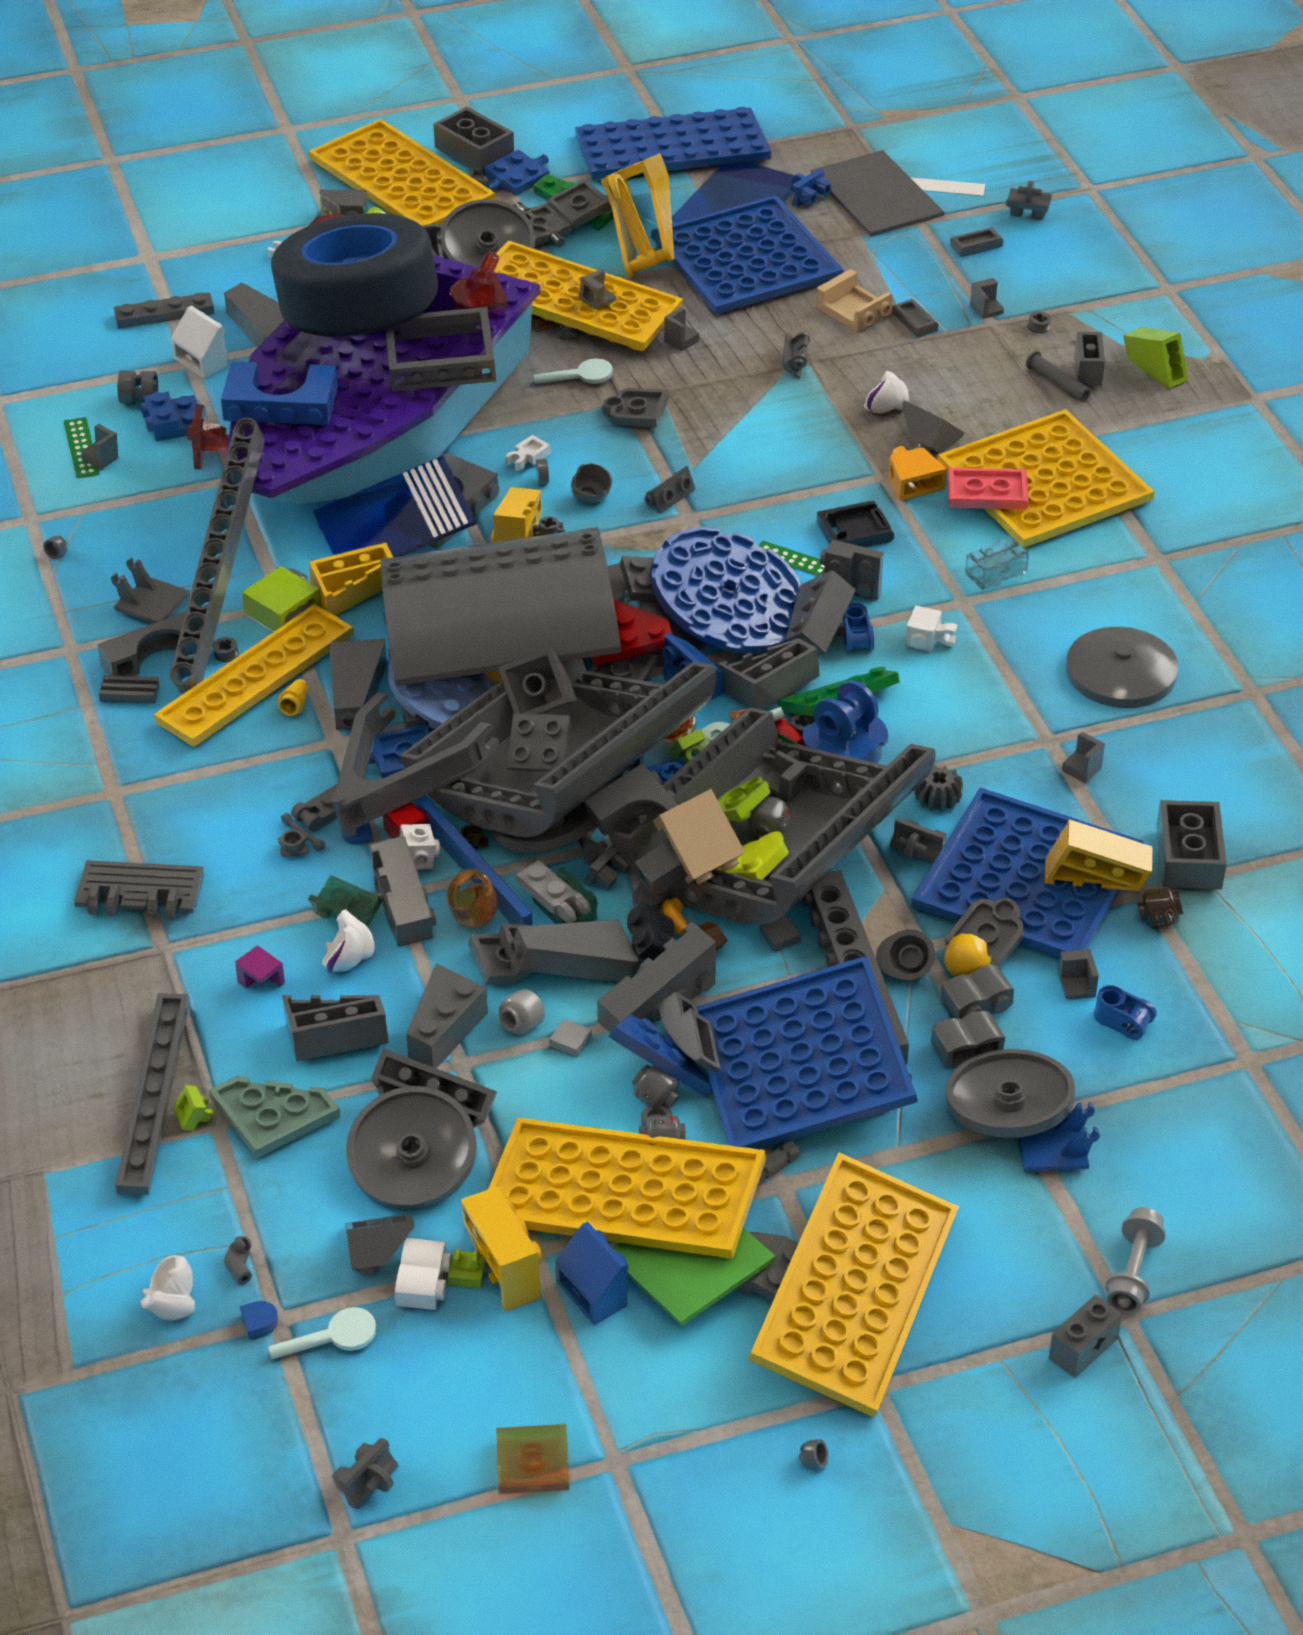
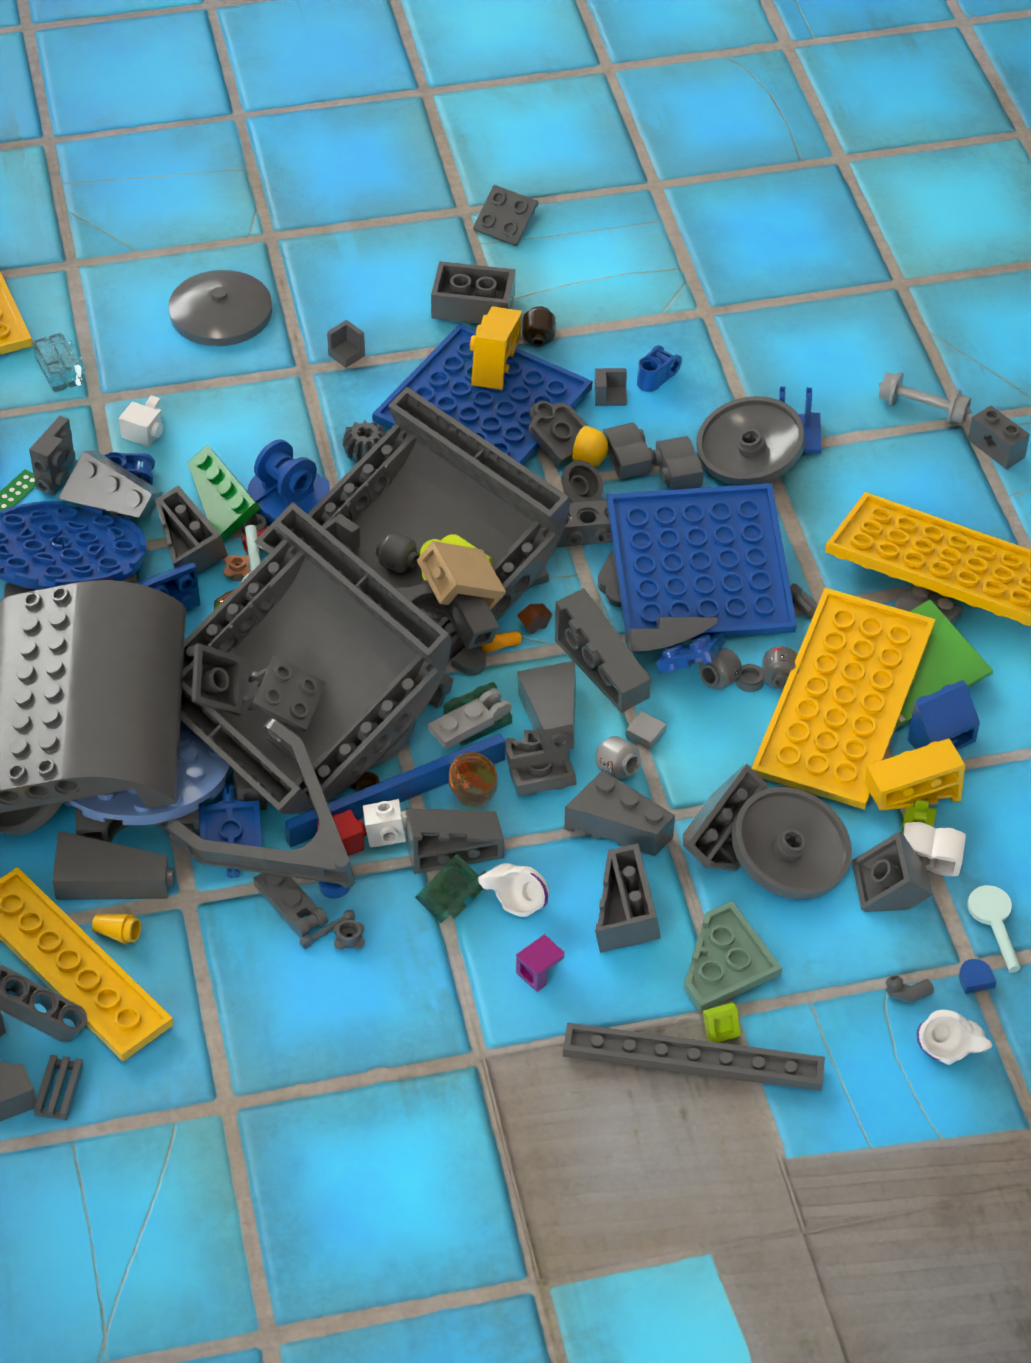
camera: 85 degrees left, 5 degrees up
(139, 887) = (391, 1075): dark grey hinge -> none
(649, 930) = (526, 652): black brick -> none
(743, 798) = (384, 559): lime plate -> none

